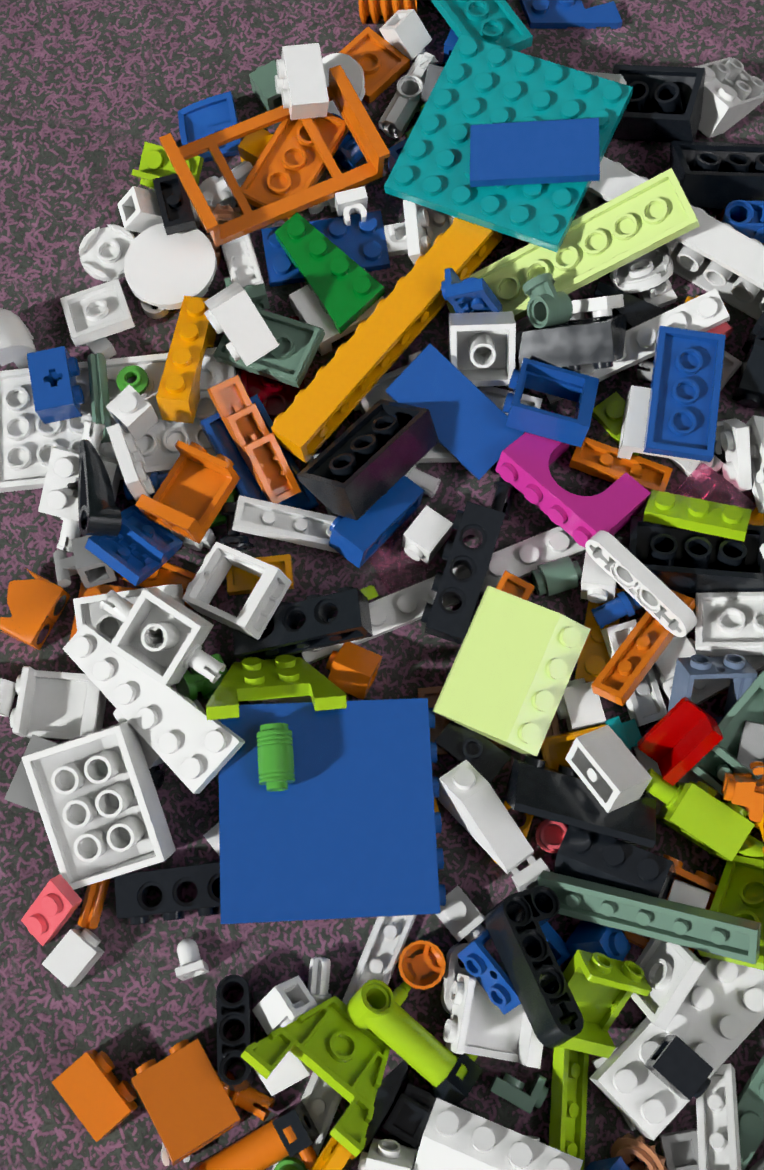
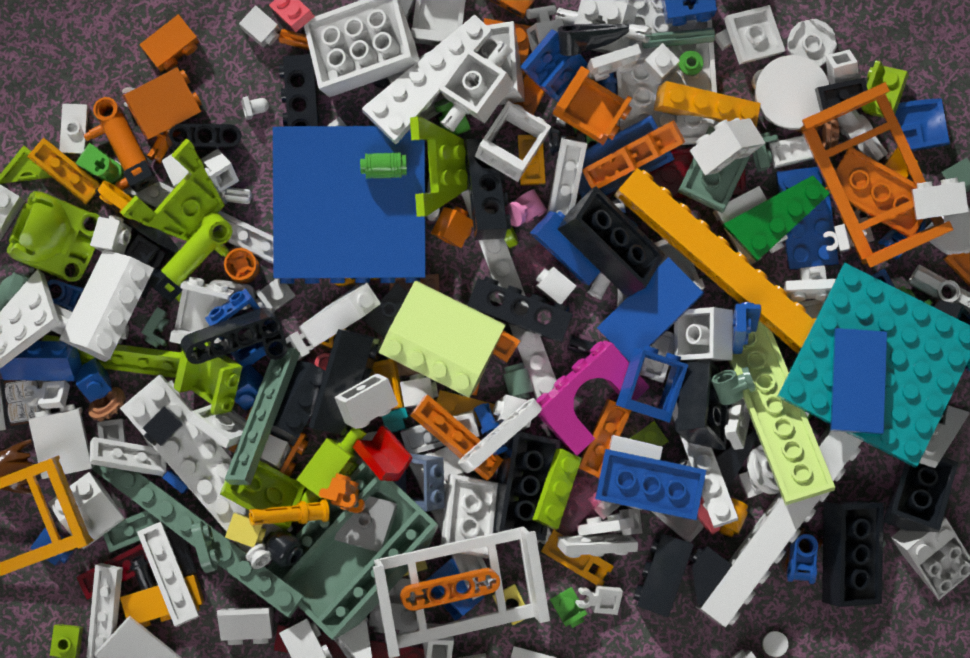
camera: 80 degrees right, 10 degrees up
(324, 574) = (525, 208): none -> bright pink piece
(745, 1049) = (173, 479): none -> blue tile

